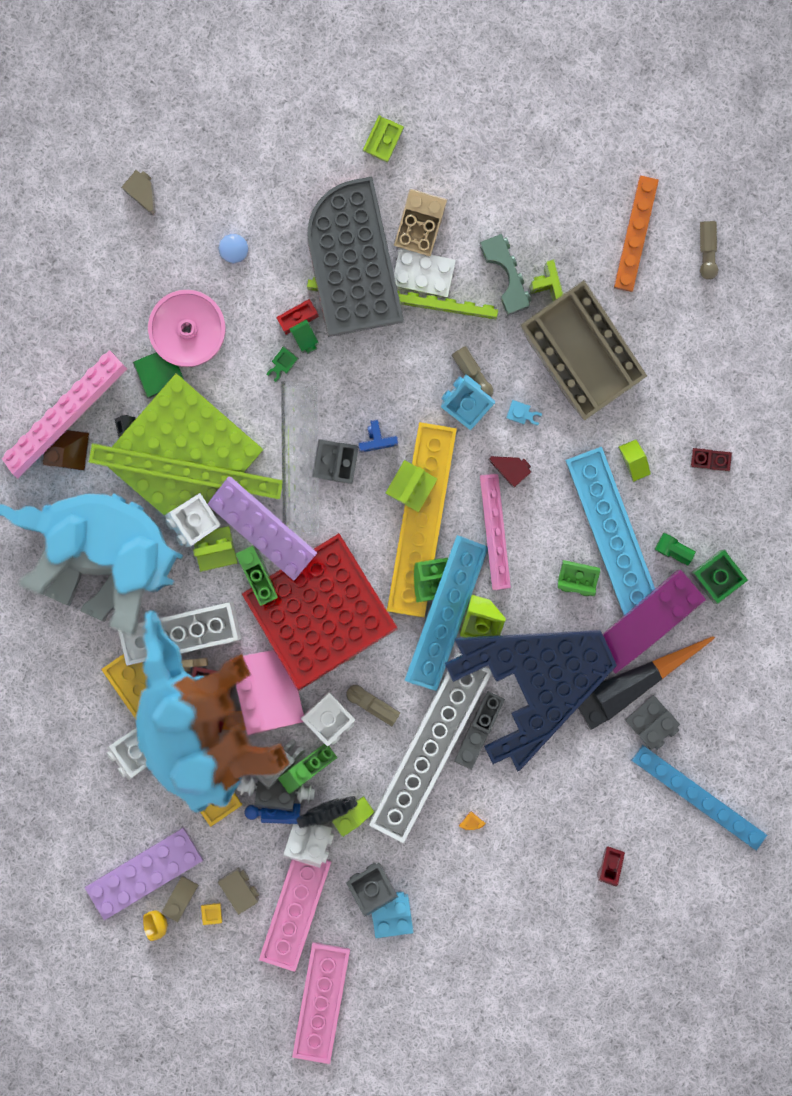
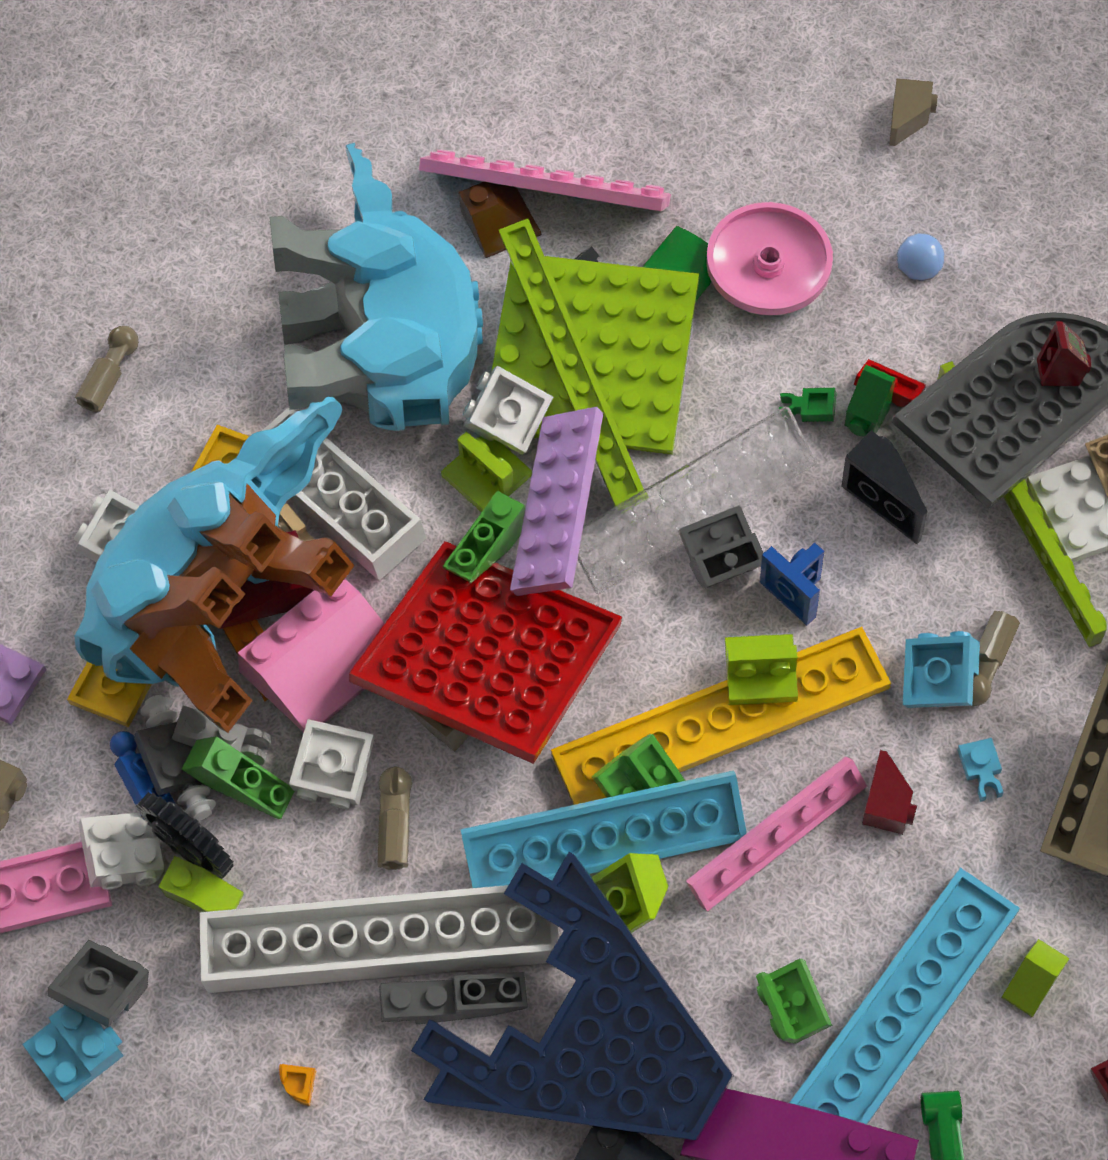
camera: 70 degrees right, 25 degrees down
(30, 709) = (106, 370): none -> dark tan piece
(349, 228) = (1063, 358): none -> dark red slope
(352, 360) = (882, 483): none -> black slope

